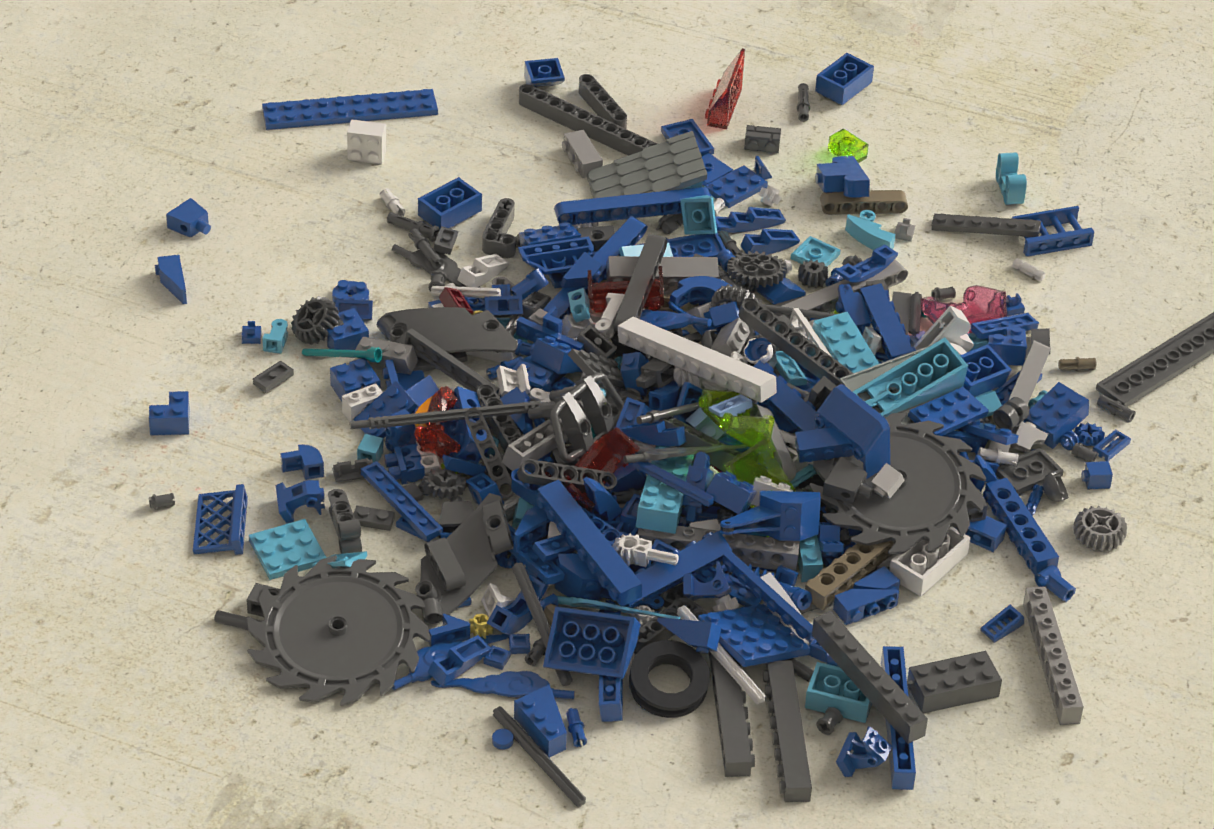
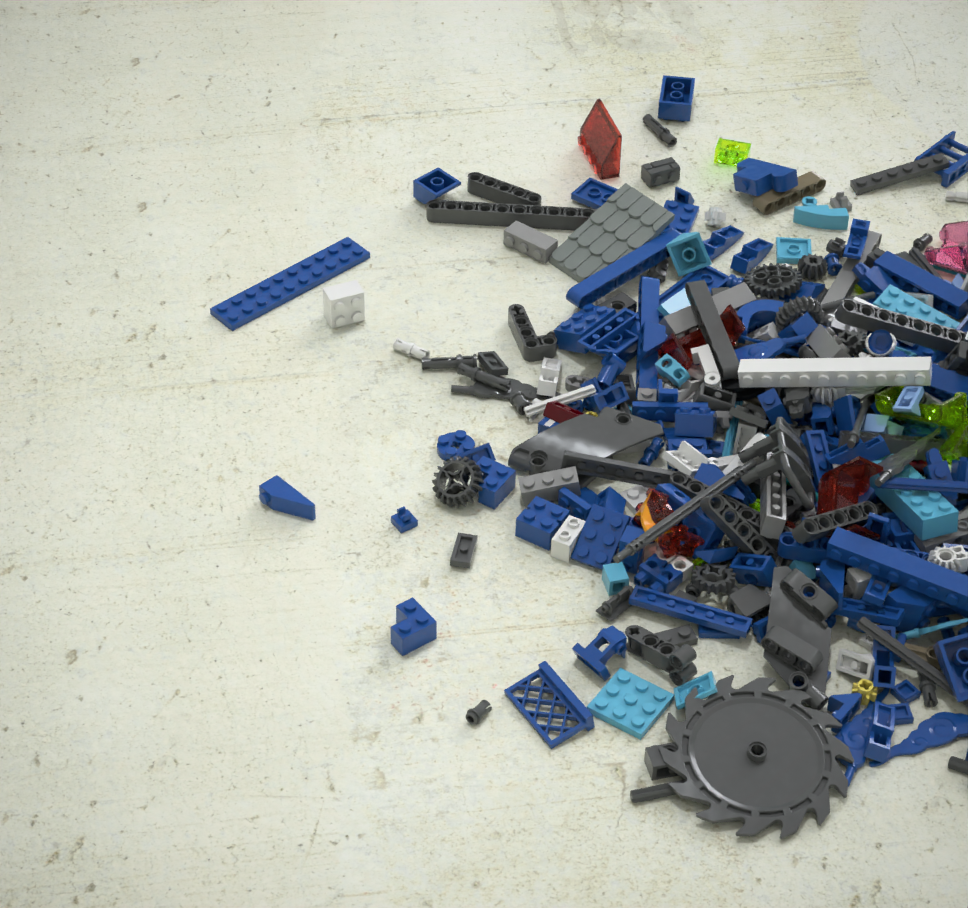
camera: 30 degrees left, 0 degrees up
(188, 219) = (248, 439): blue torso -> none
(277, 338) = (431, 510): medium azure leg -> none
(306, 459) = (570, 612): blue brick -> none
(373, 354) = (544, 490): teal piece -> none
(450, 204) = (467, 329): blue brick -> none
(729, 243) = (724, 269): dark grey axle -> none
(1011, 185) = (890, 136): medium azure beam -> none

